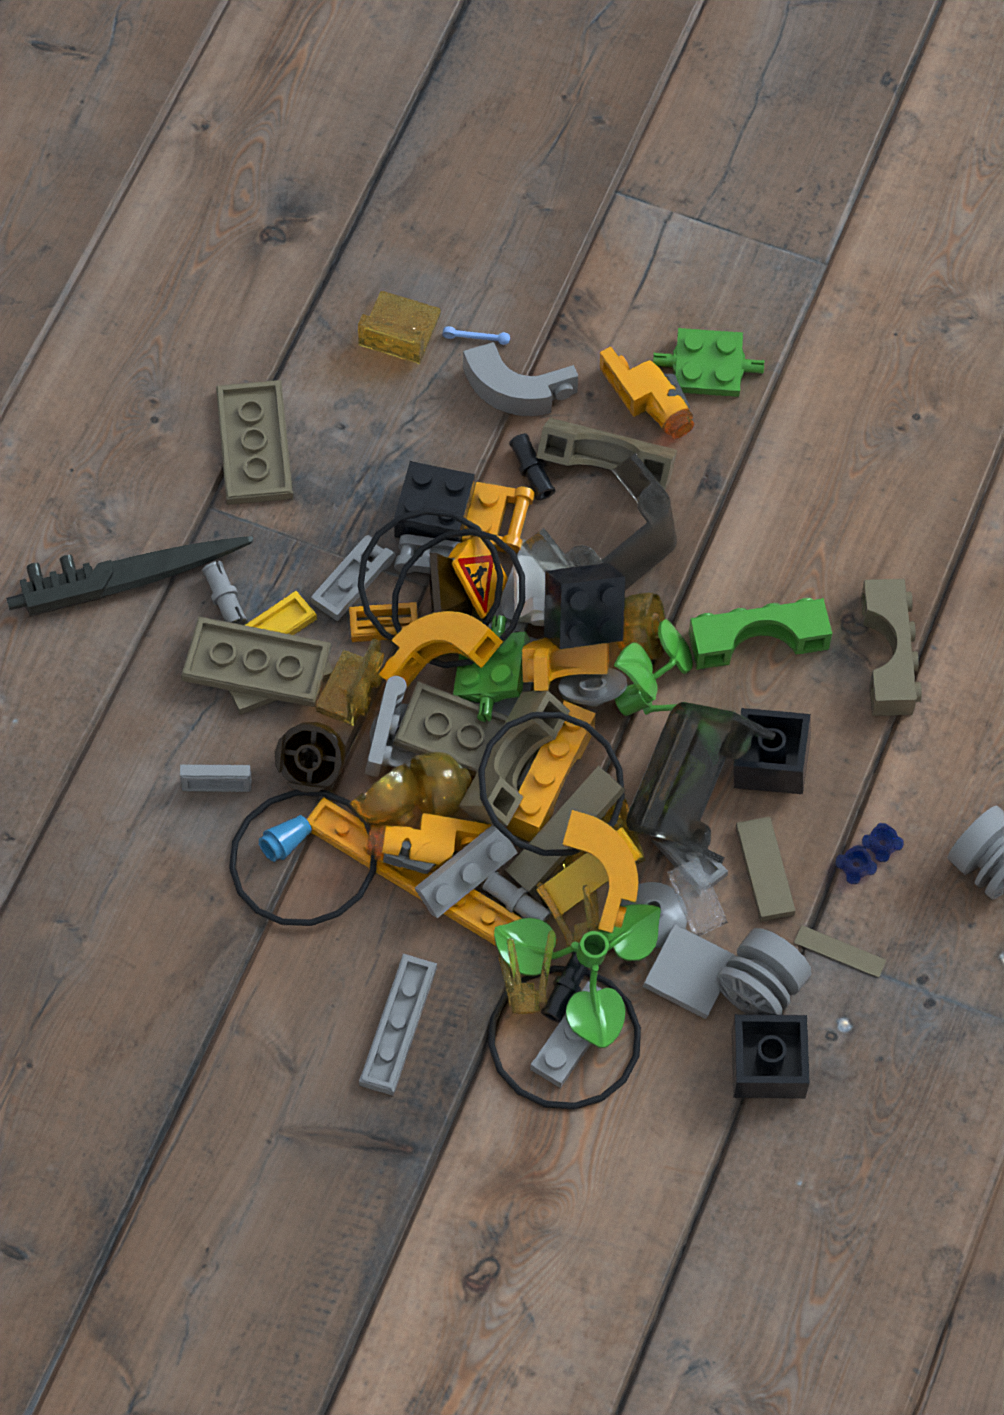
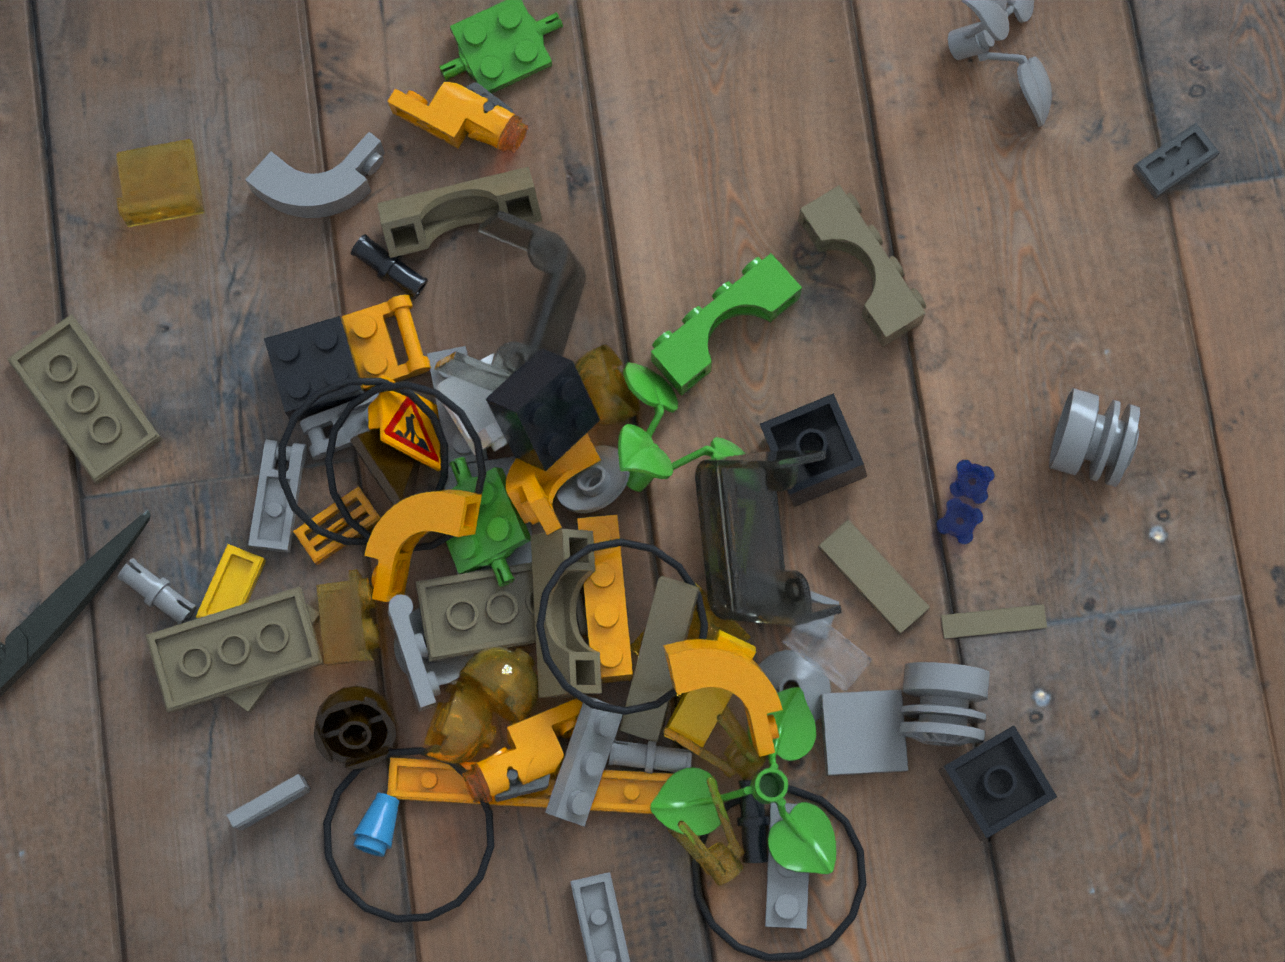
camera: 25 degrees left, 15 degrees up
(450, 333) = (274, 135): light blue hinge -> none

